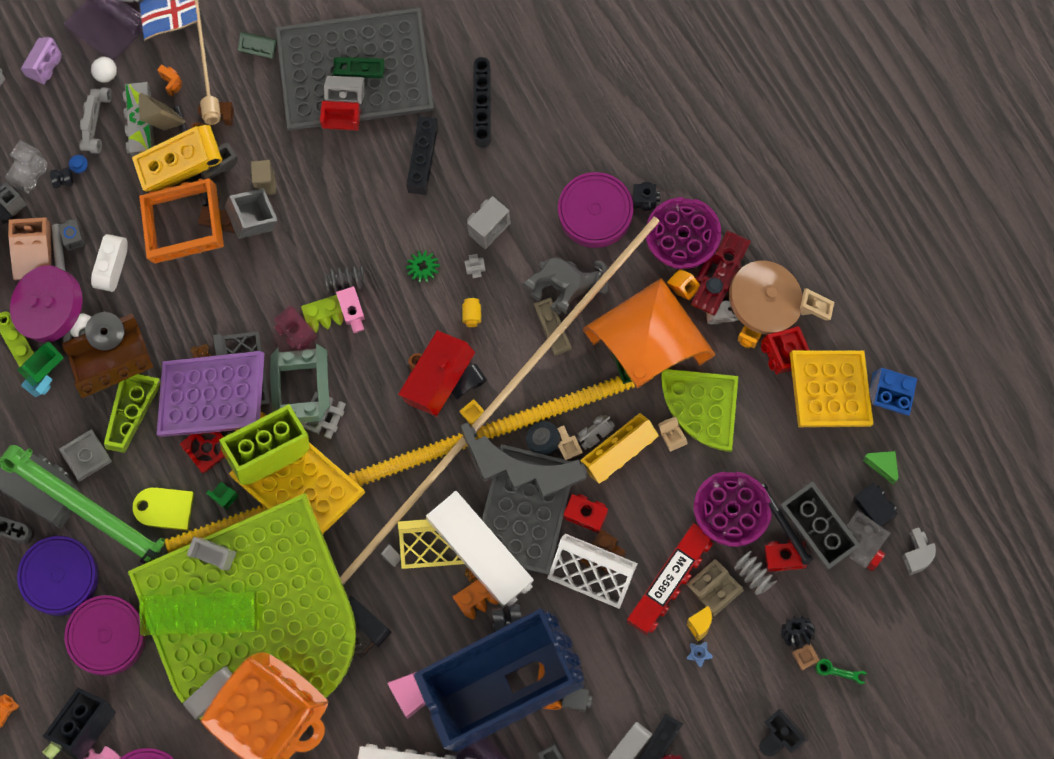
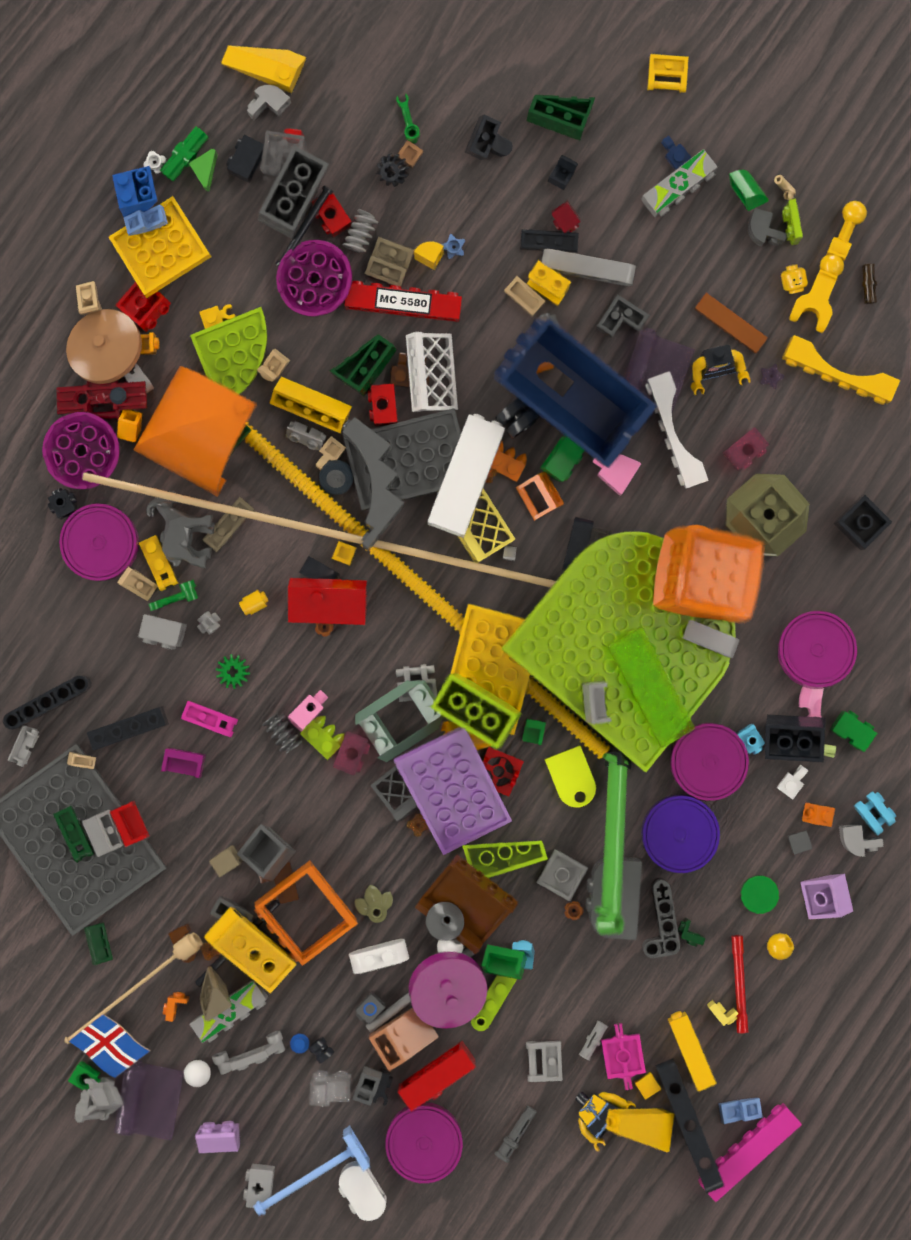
camera: 120 degrees left, 15 degrees up
(41, 702) = (791, 783): none -> white plate
(44, 448) = (573, 915): none -> dark orange plate
(109, 688) = (748, 732): none -> medium azure brick
(158, 285) = (374, 901): none -> olive plate
(368, 187) = (183, 762): none -> magenta panel
(393, 226) = (208, 718): none -> dark pink plate
(416, 104) = (81, 760): none -> tan piece
(428, 619) = (547, 490): none -> orange tile
(445, 641) = (562, 459): none -> green brick
(457, 66) = (25, 740): none -> light grey hinge
(512, 262) = (187, 592): none -> green brick
(542, 224) = (137, 583): none -> tan slope
(549, 250) = (157, 562): none -> yellow plate
(617, 717) = (548, 283): none -> yellow panel
(619, 694) = (524, 296): none -> tan tile
(629, 514) = (365, 365): none -> dark green wedge
(744, 406) = (213, 316): none -> yellow plate
(860, 388) = (142, 222): none -> medium blue slope
(907, 454) = (184, 154): none -> green piece
(913, 420) = (152, 156): none -> white plate
(952, 573) = (271, 66): none -> yellow wedge

